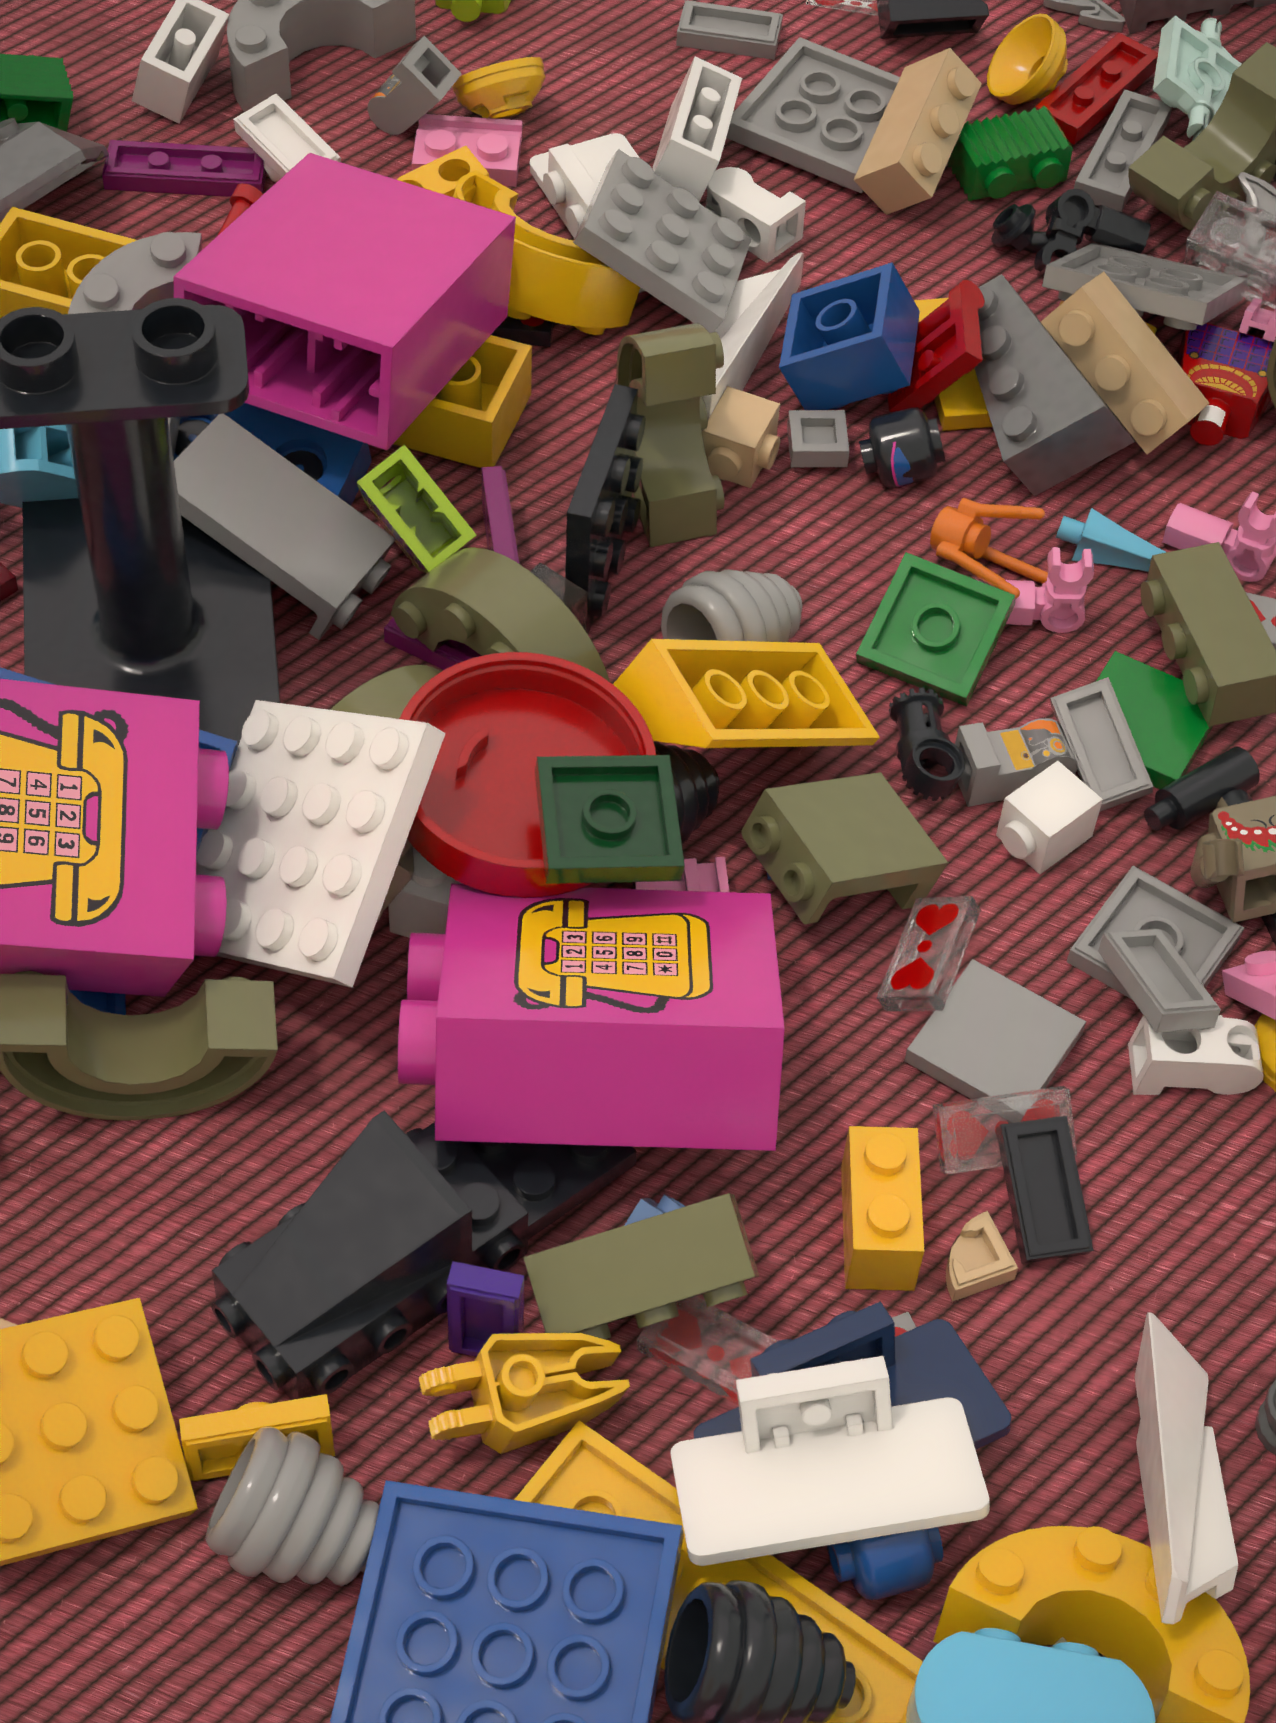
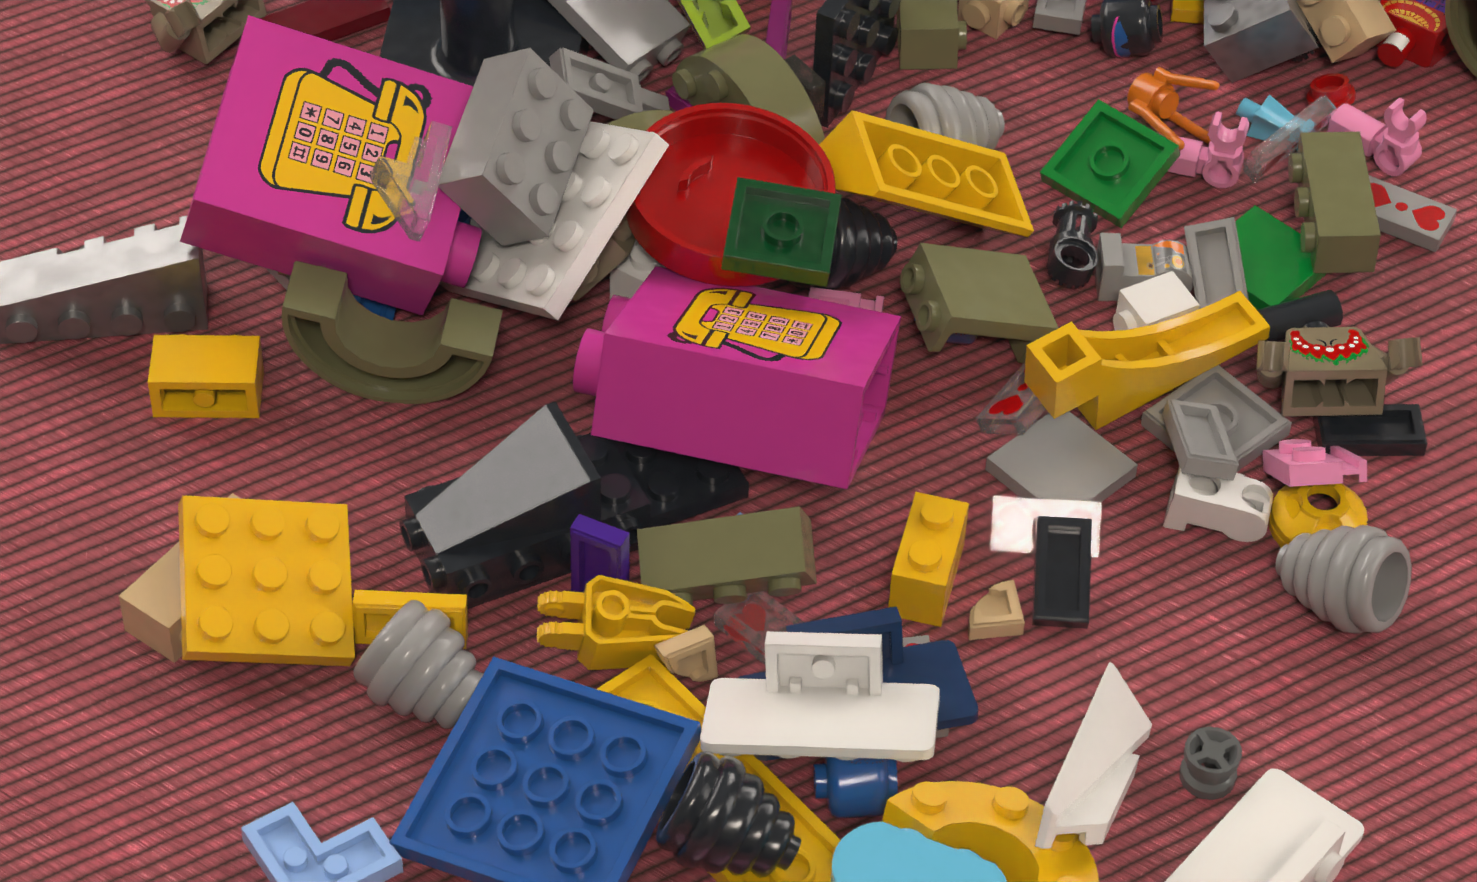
camera: 15 degrees right, 5 degrees down
(135, 859) = (412, 186): none -> clear slope
(247, 769) = (515, 147): none -> light grey brick
(315, 646) = (604, 86): none -> light grey hinge
(629, 1410) = (690, 654): none -> tan tile
(1028, 910) = (1124, 369): none -> yellow arch
(1132, 560) = (1286, 139): none -> clear tile
(1155, 493) = (1334, 86): none -> red plate

